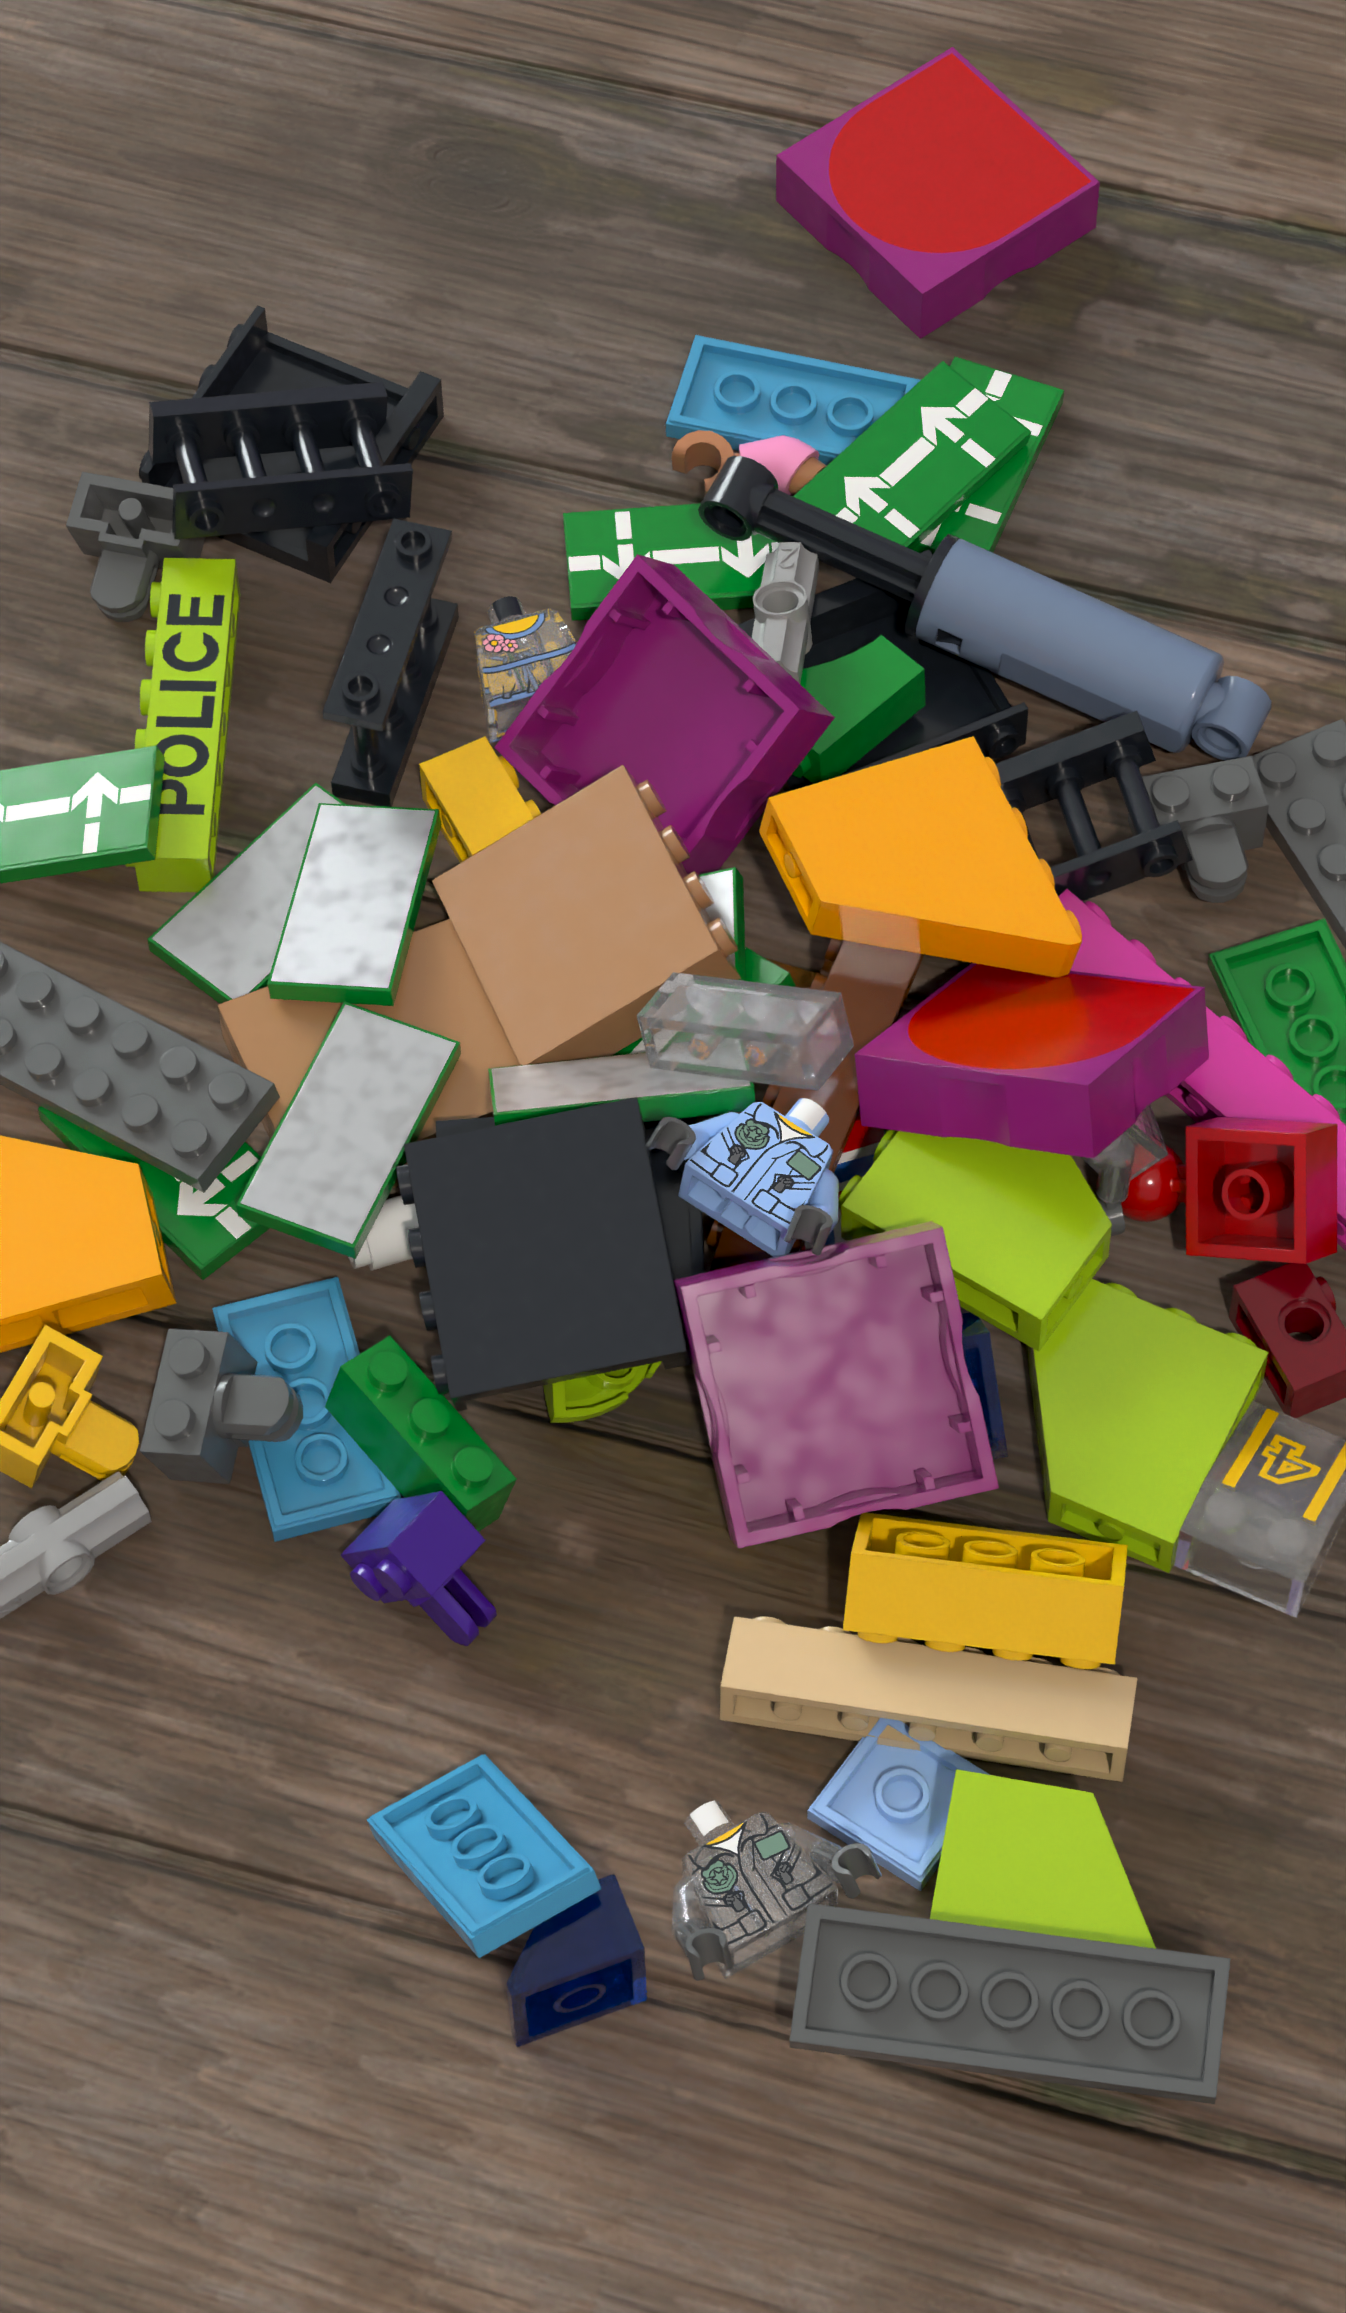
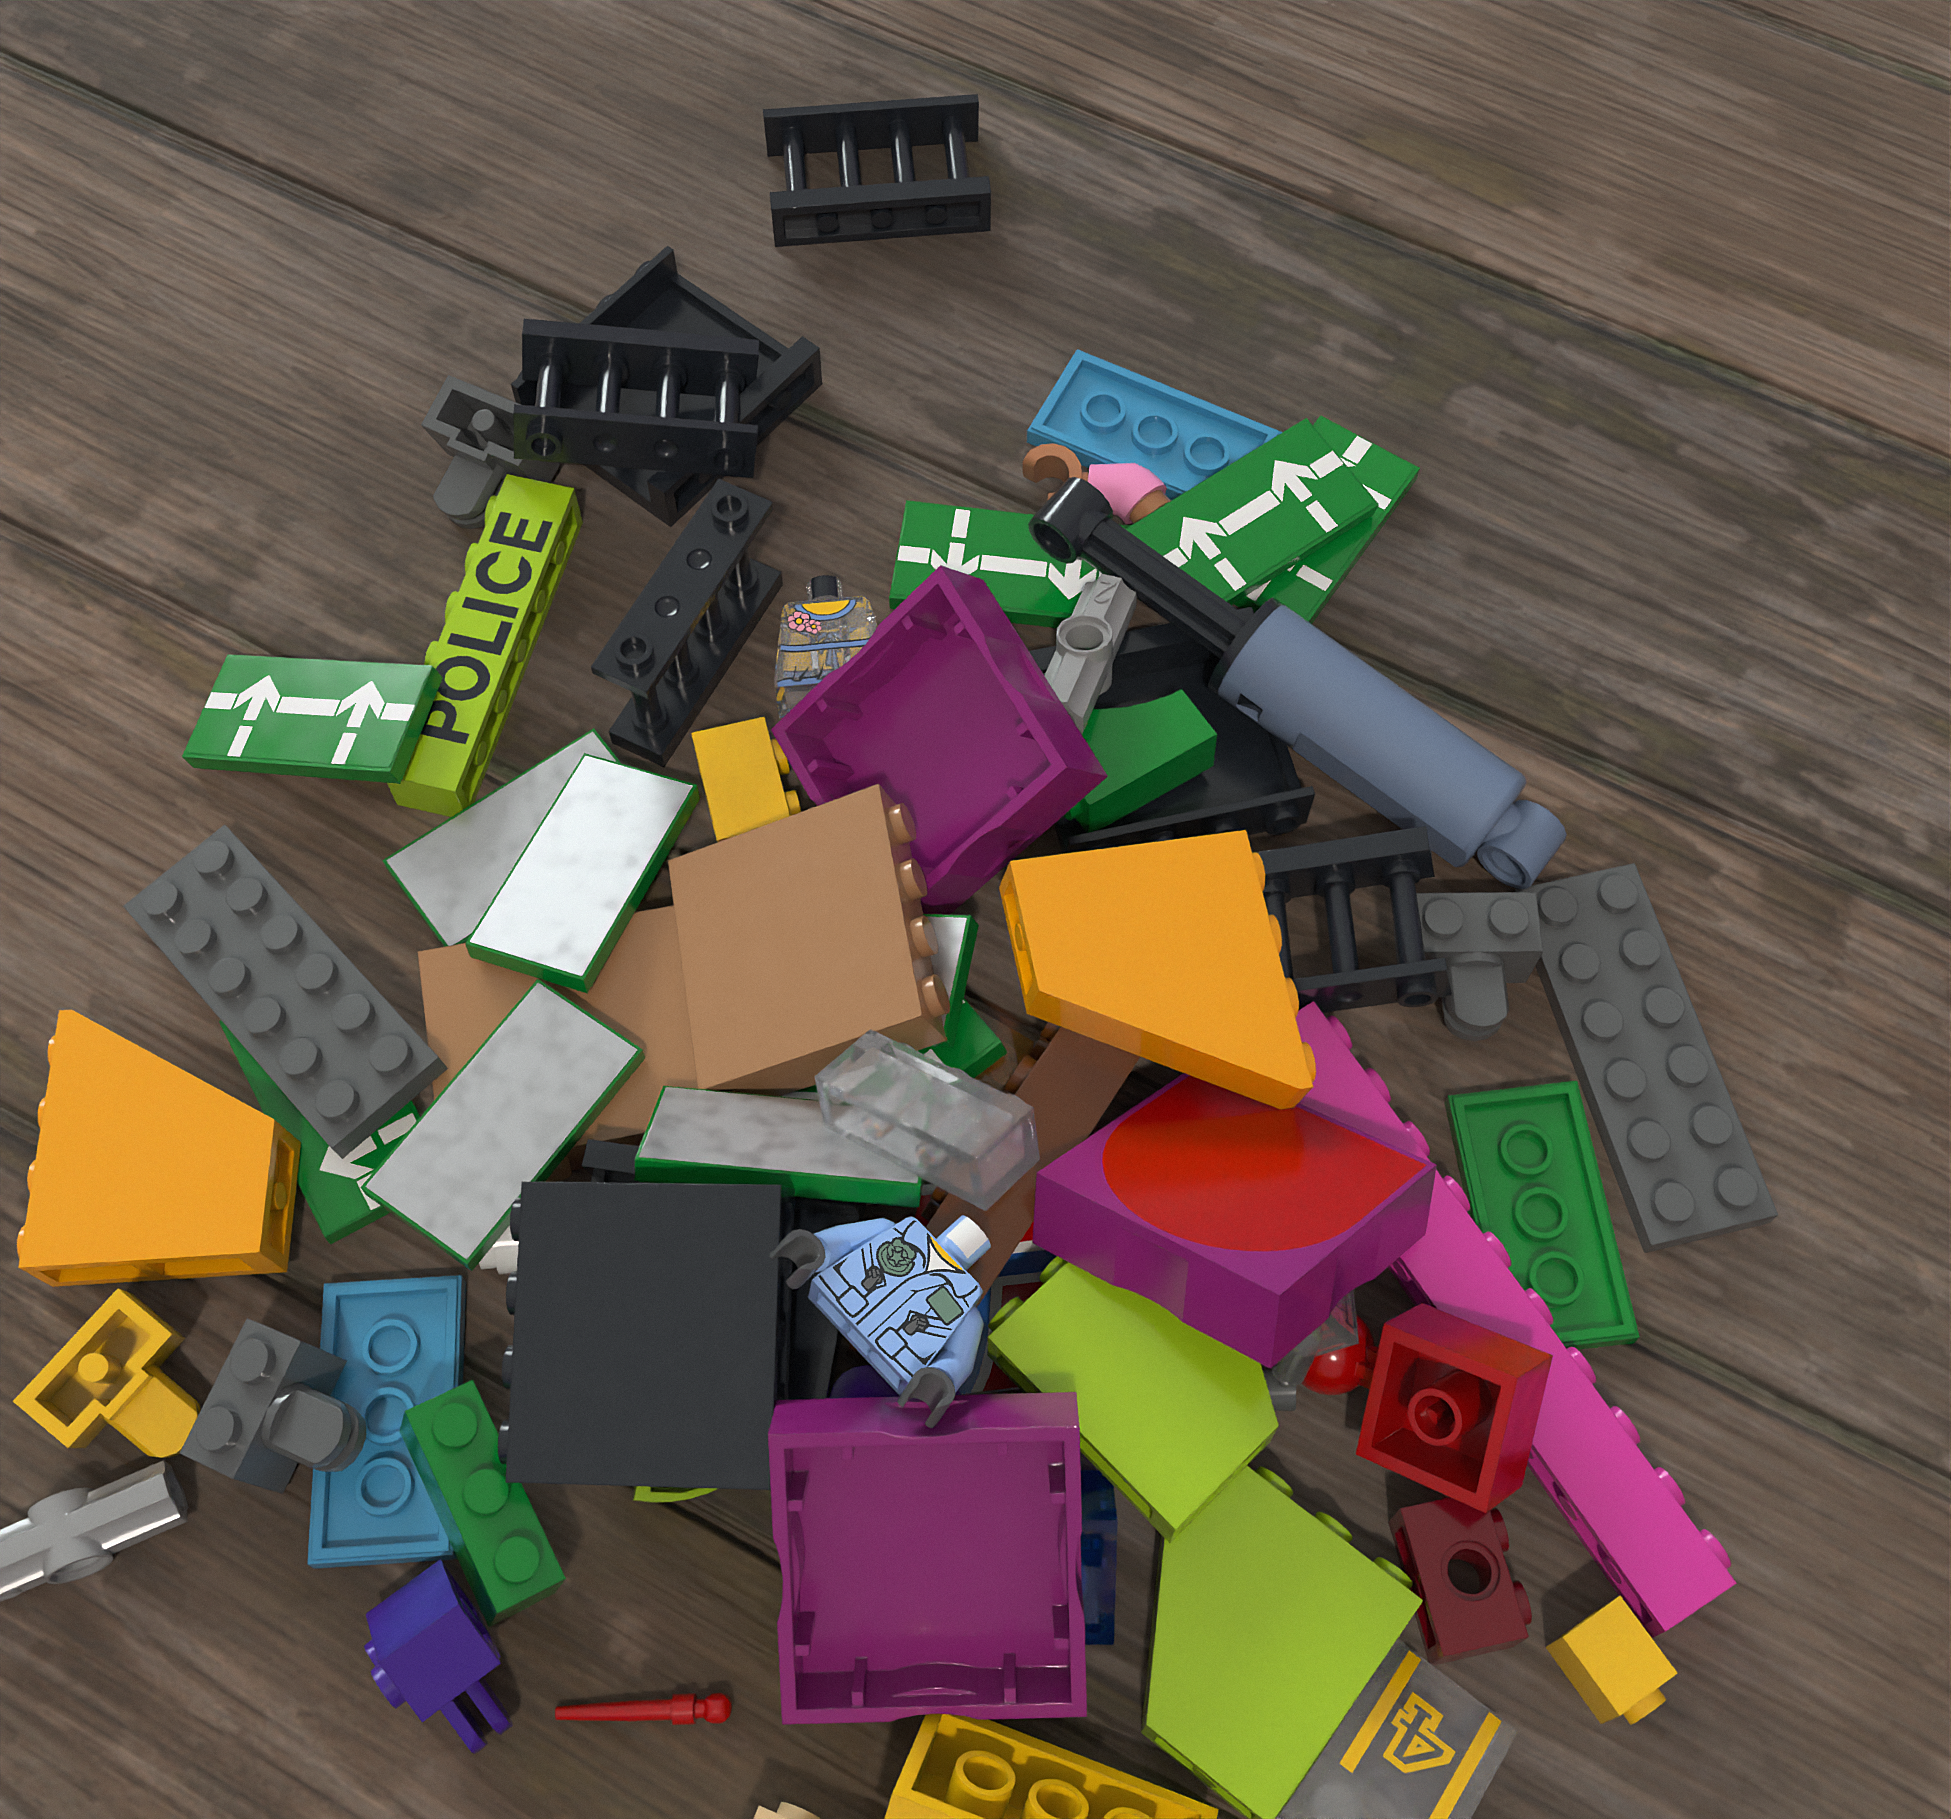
camera: 10 degrees right, 5 degrees up
(454, 232) = (876, 210): none -> black fence
(640, 1580) = (681, 1709): none -> red piece
(936, 191) = (1338, 252): tile -> none

